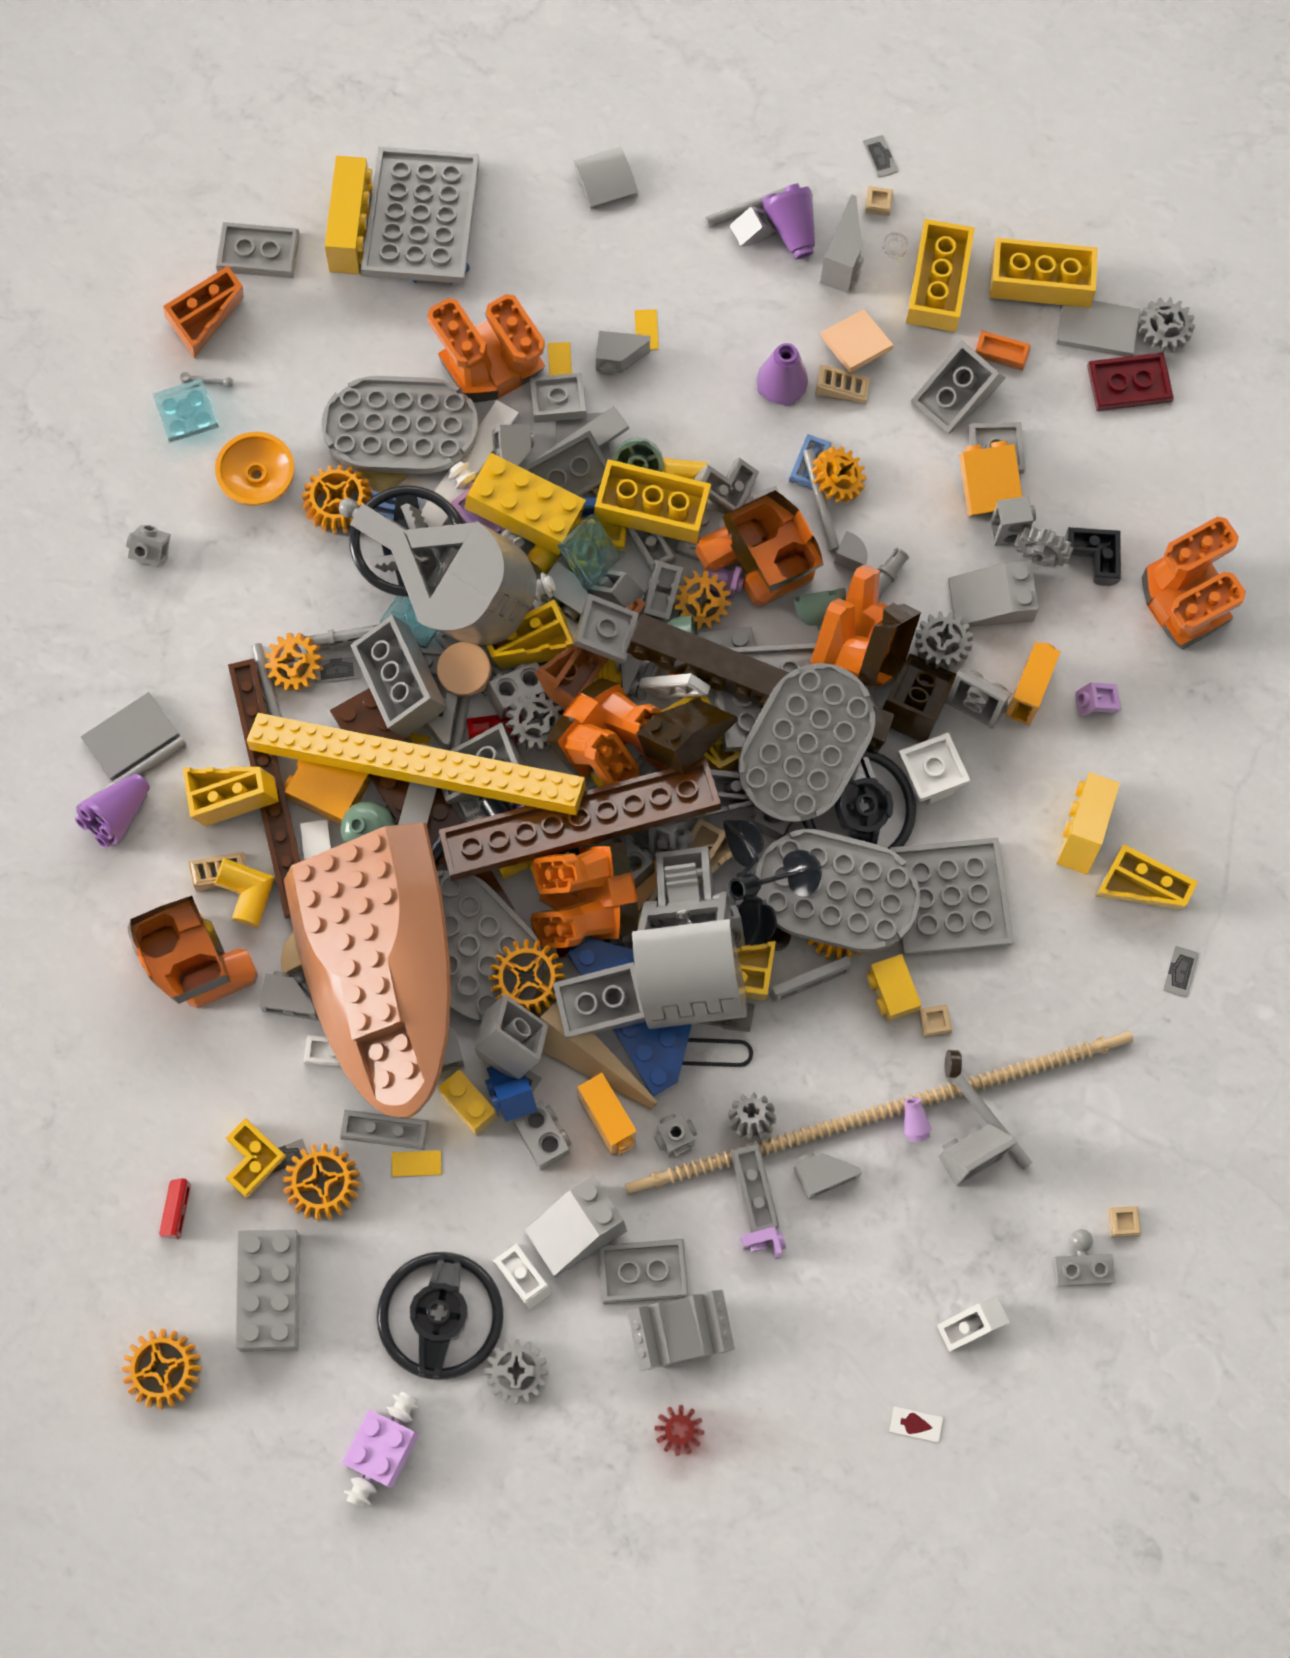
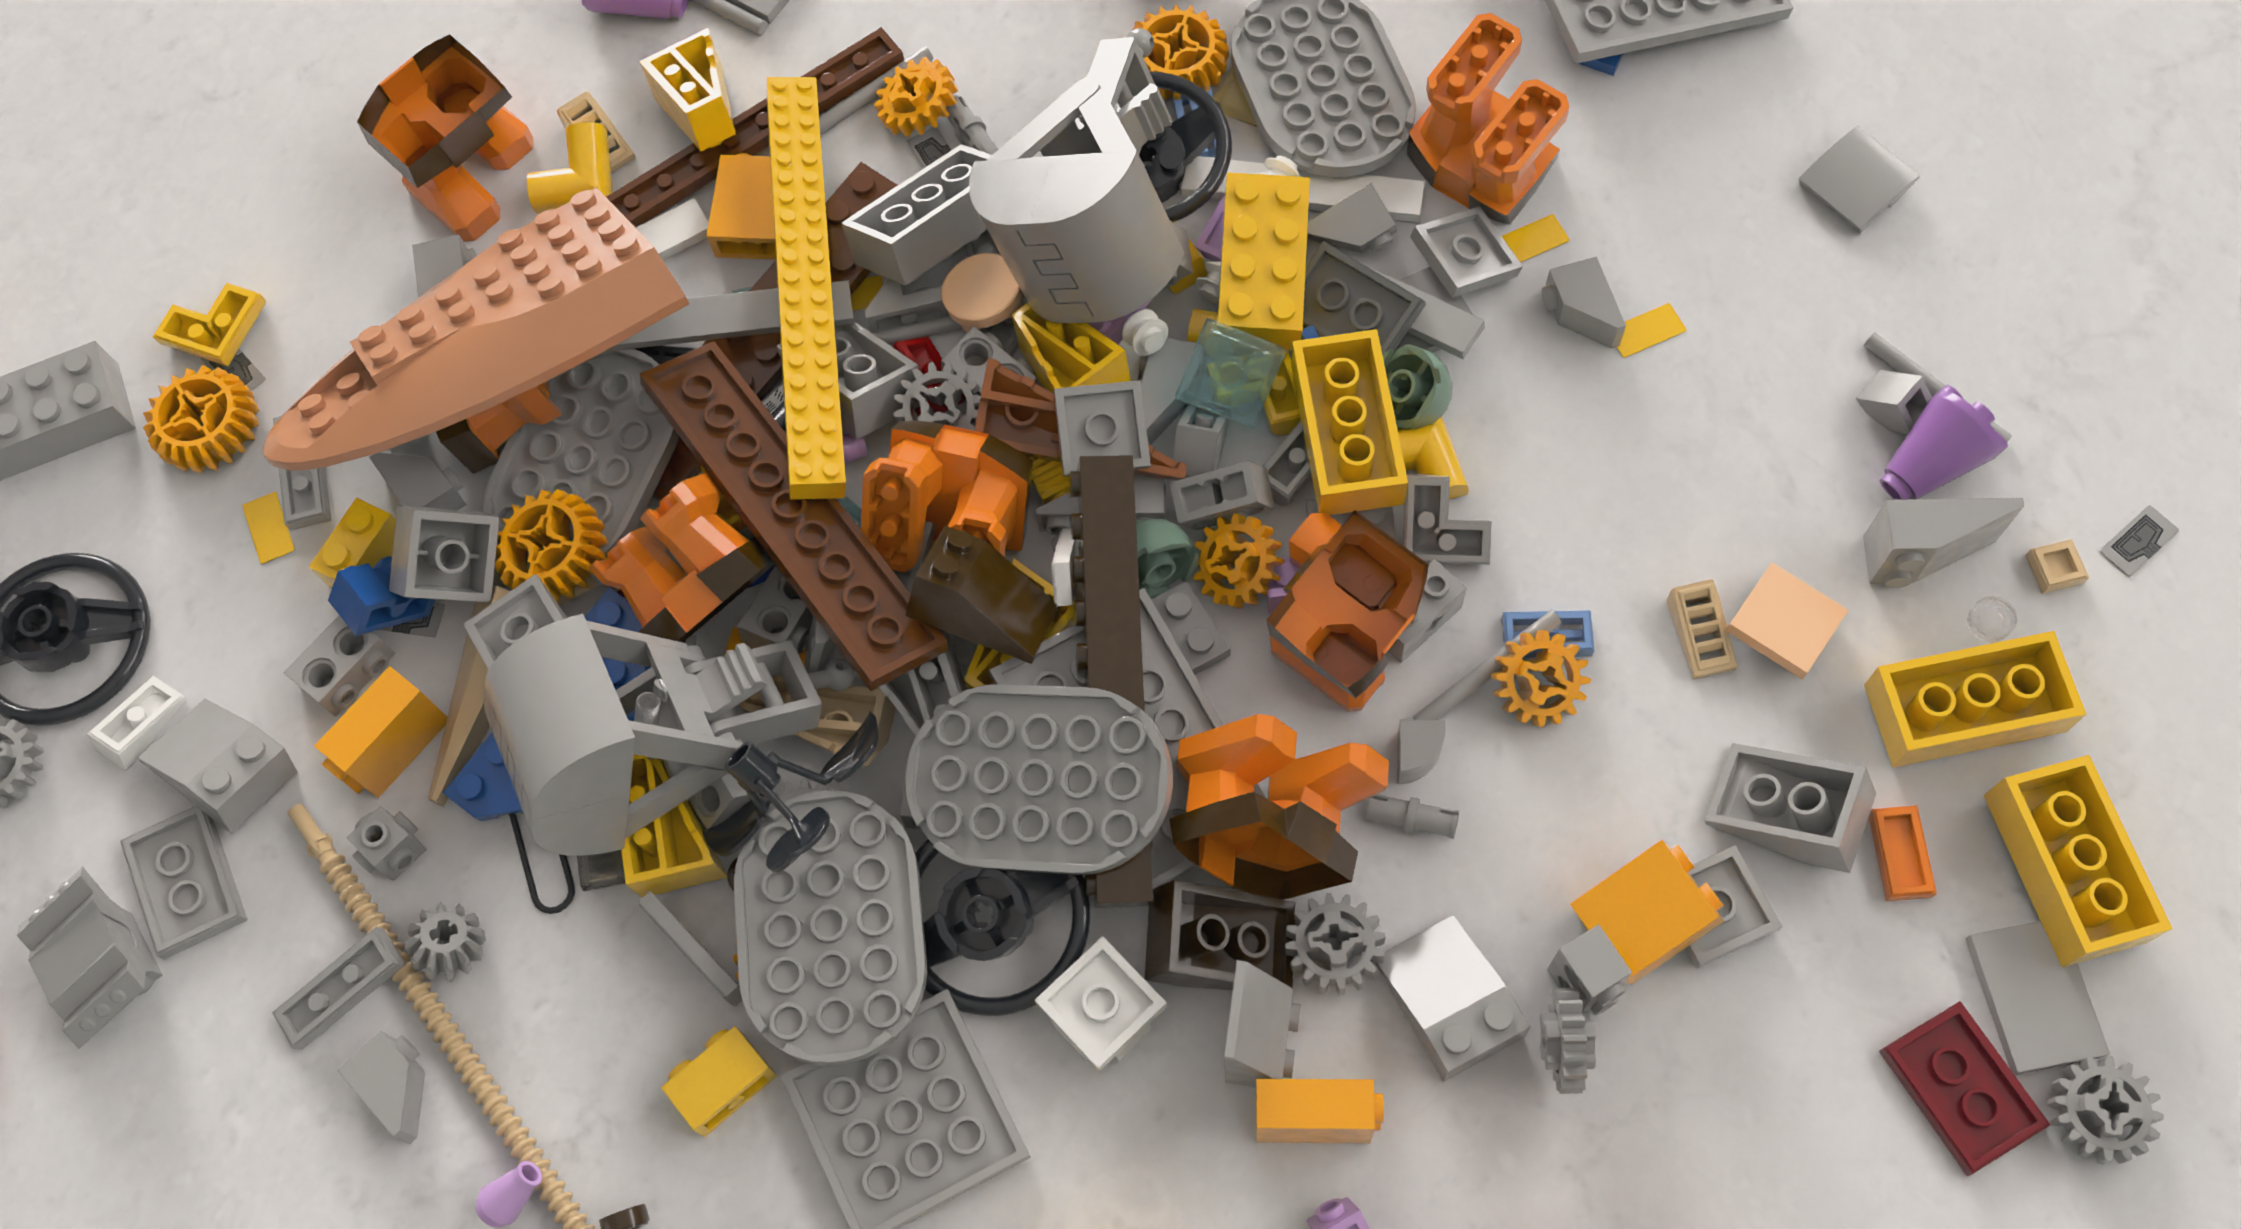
camera: 80 degrees right, 5 degrees down
(175, 1208) = (127, 273): slope -> none
(363, 819) = (711, 266): sand green cylinder -> none
(757, 1241) = (263, 1031): lavender bracket -> none
(783, 376) = (1665, 535): medium lavender cone -> none
(813, 606) = (1301, 714): sand green cylinder -> none
(935, 1021) = (693, 1169): tan tile -> none
(1103, 547) = (1623, 1148): black brick -> none

